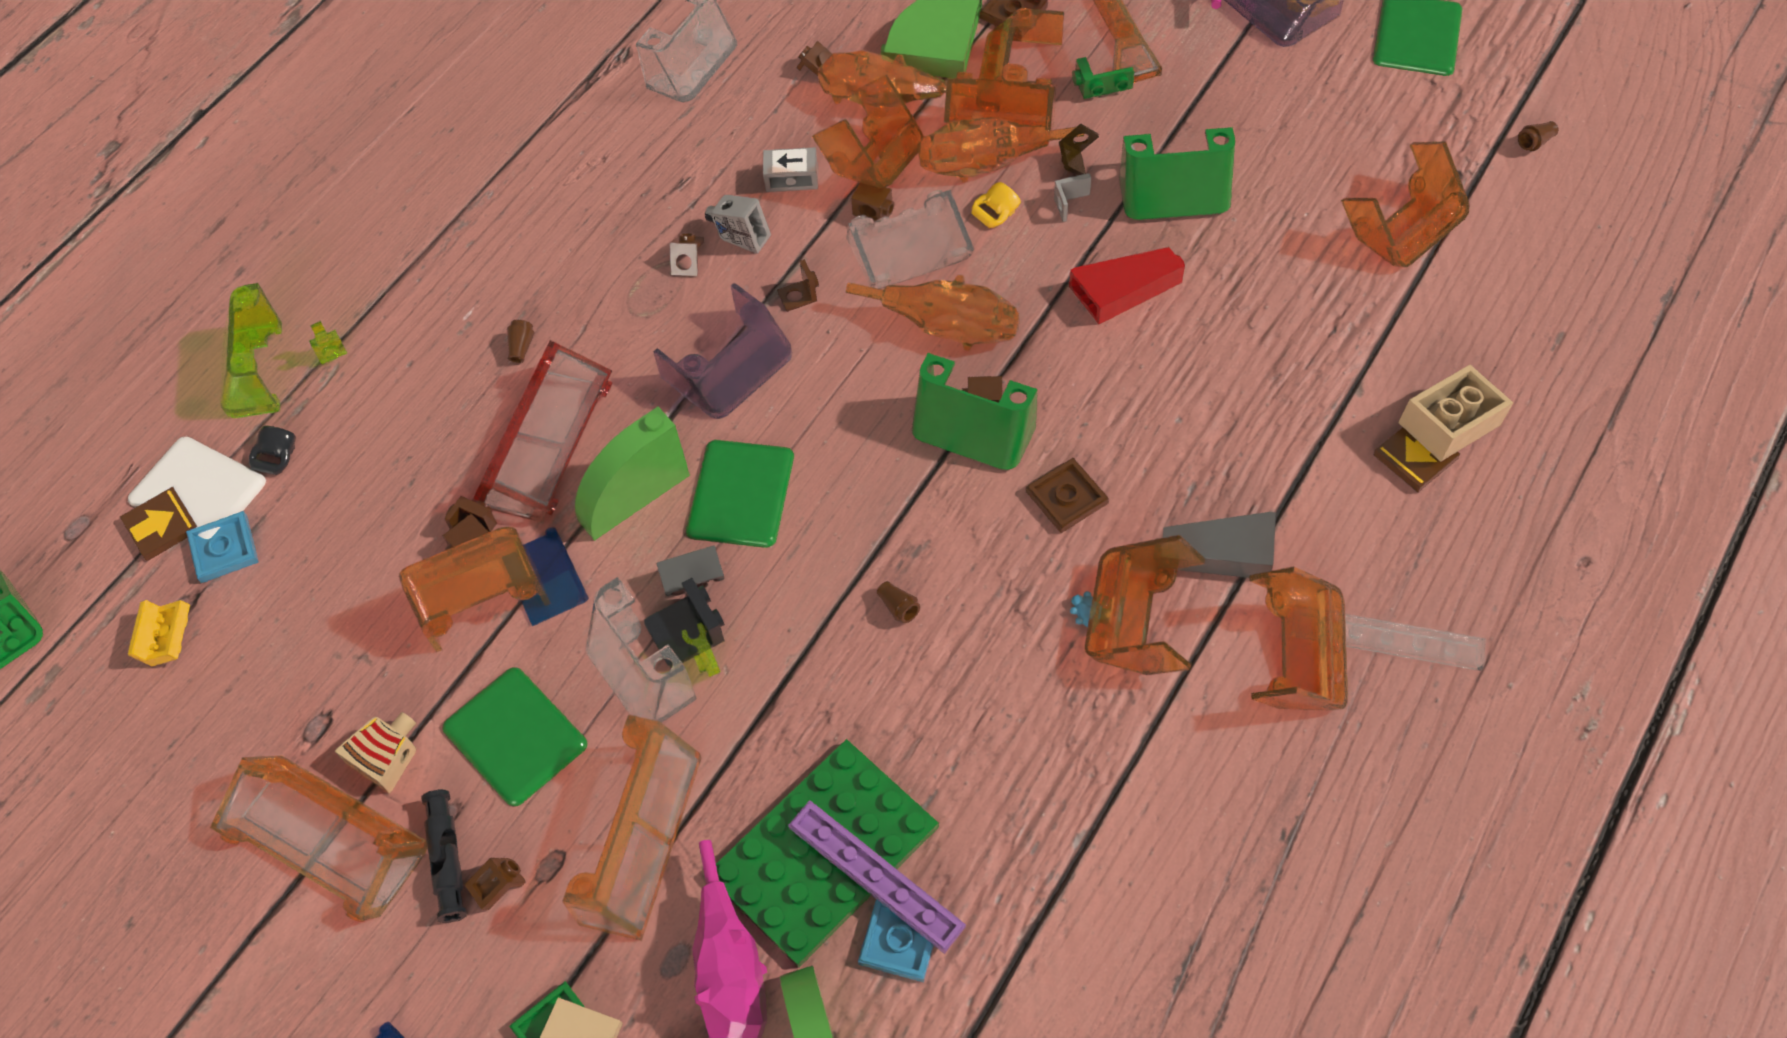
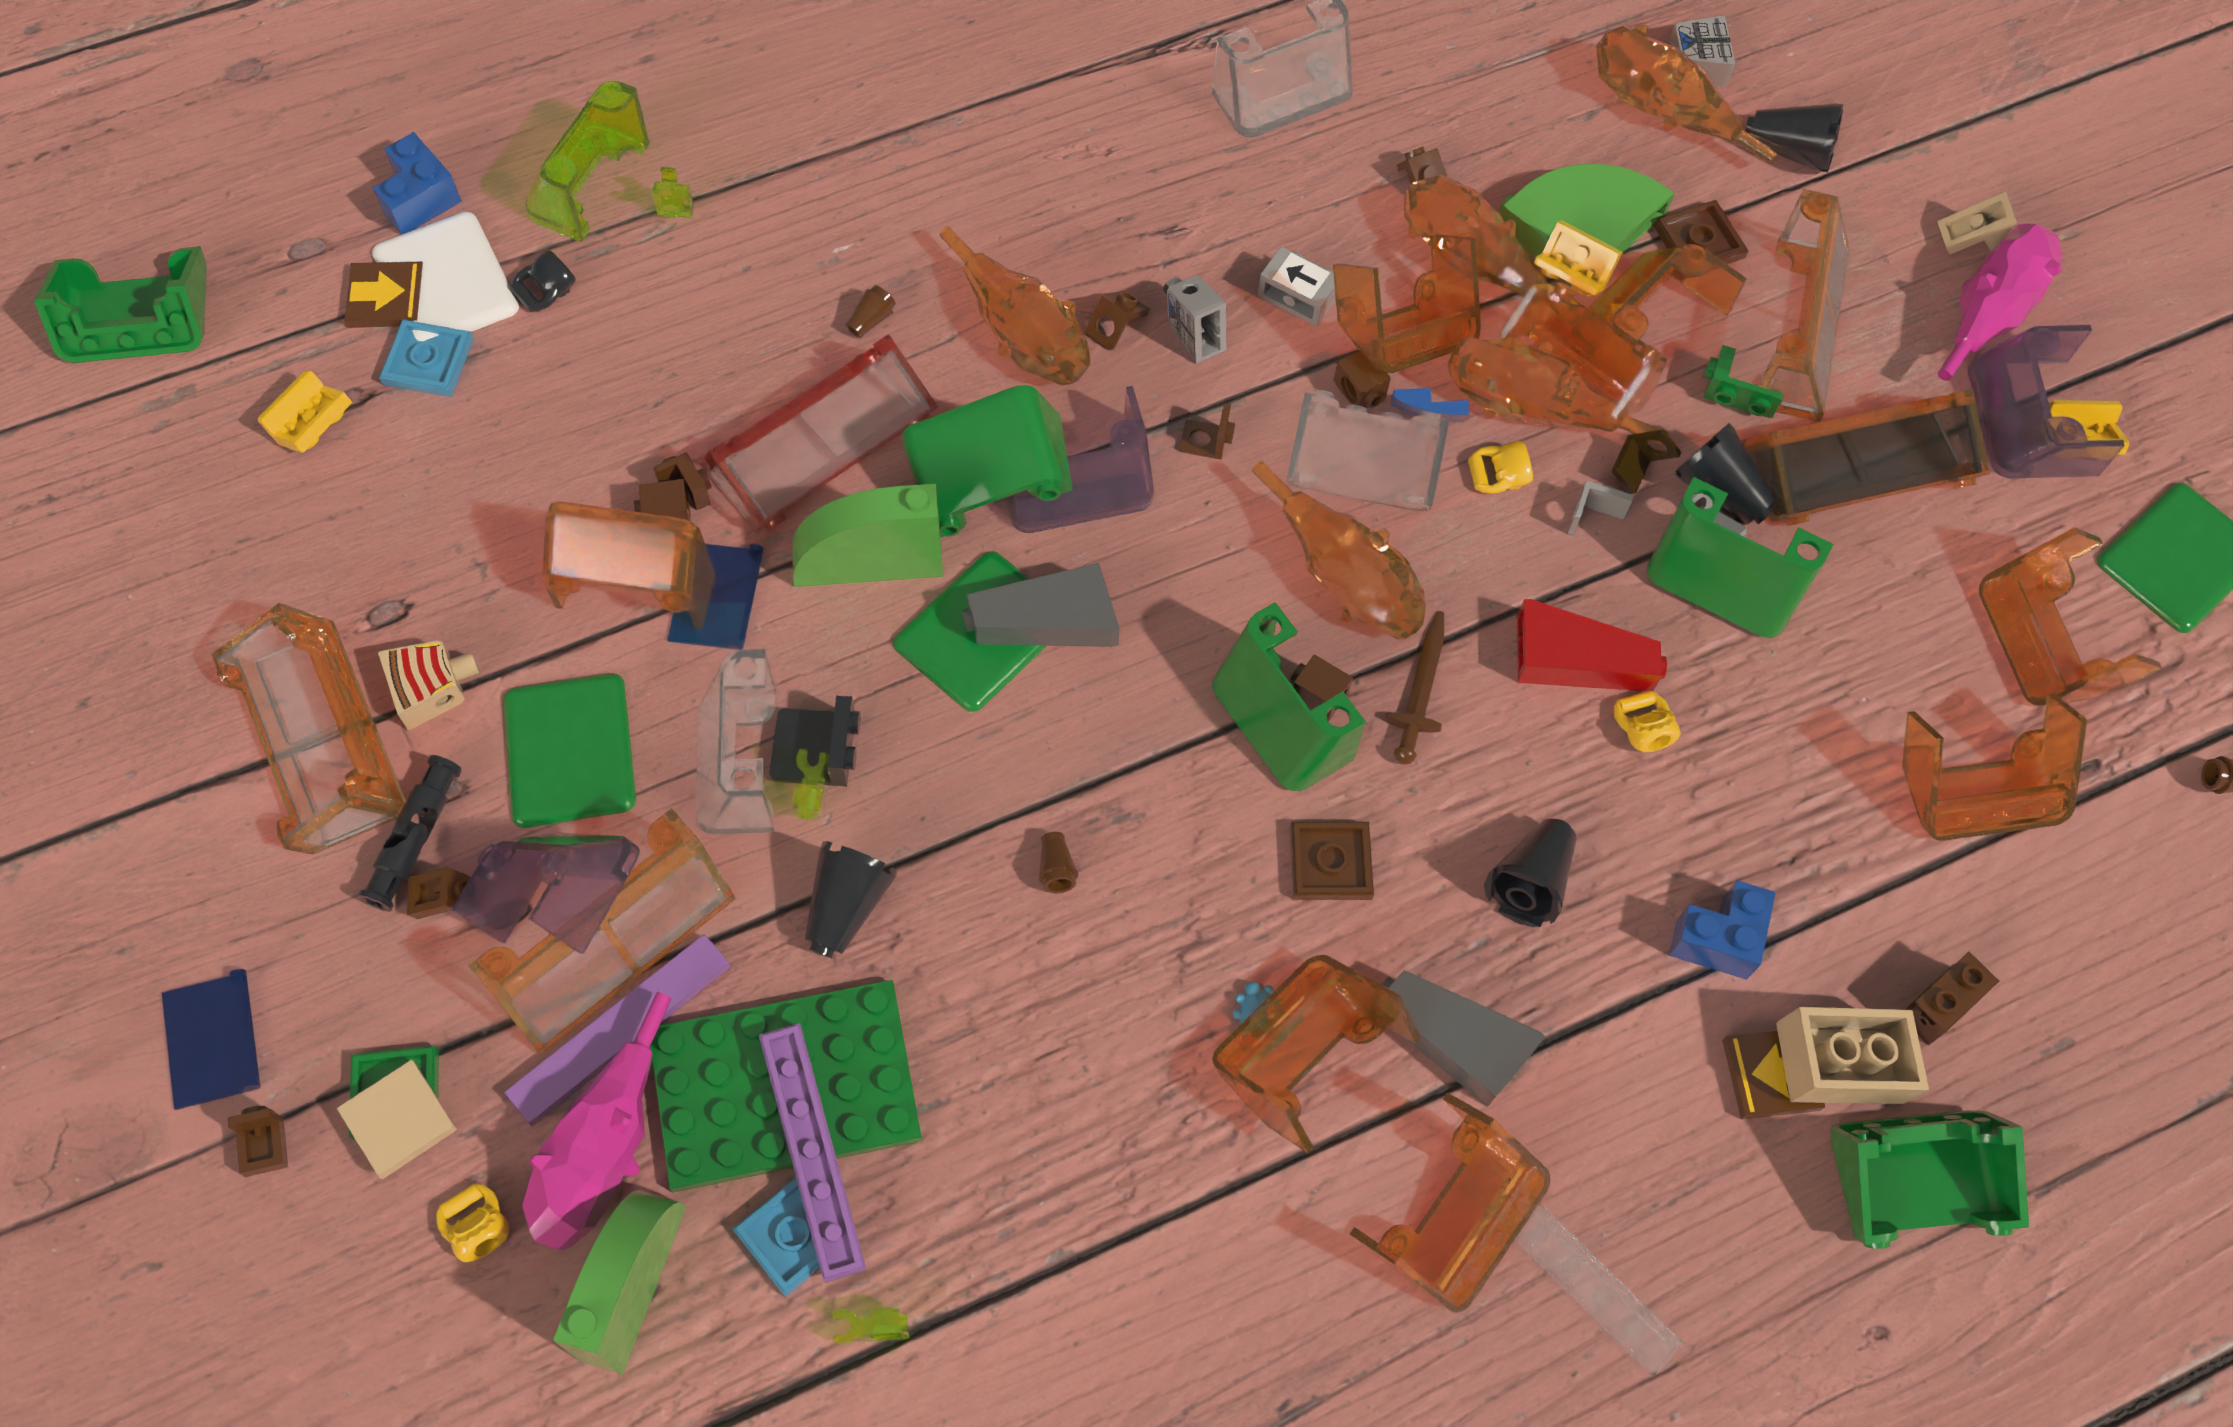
camera: 25 degrees right, 5 degrees up
(133, 439) = (419, 187): none -> blue brick
(603, 788) = (581, 878): none -> windscreen
(628, 283) = (1025, 317): none -> clear orange piece
(671, 371) = (989, 453): none -> green windscreen
(683, 892) = (601, 1040): none -> medium lavender tile
(700, 565) = (867, 684): dark grey hinge -> none
(777, 452) = (1045, 611): none -> dark grey slope
(777, 705) = (843, 897): none -> black cone
(917, 193) = (1419, 399): none -> blue slope
(954, 55) = (1578, 259): none -> yellow bracket
(1002, 954) = (883, 1326): none -> clear neon green plate
(1054, 382) = (1414, 719): none -> reddish brown sword
(1128, 120) = (1729, 467): none -> black cone
(1197, 426) = (1534, 875): none -> black cone
(1198, 304) = (1650, 730): none -> yellow piece
(1205, 76) = (1871, 455): none -> clear smoke windscreen
(1335, 389) = (1728, 939): none -> blue brick
(1353, 111) = (2033, 635): none -> clear orange windscreen
(1483, 345) = (1951, 997): none -> reddish brown hinge
(1548, 451) = (1931, 1174): none -> green windscreen

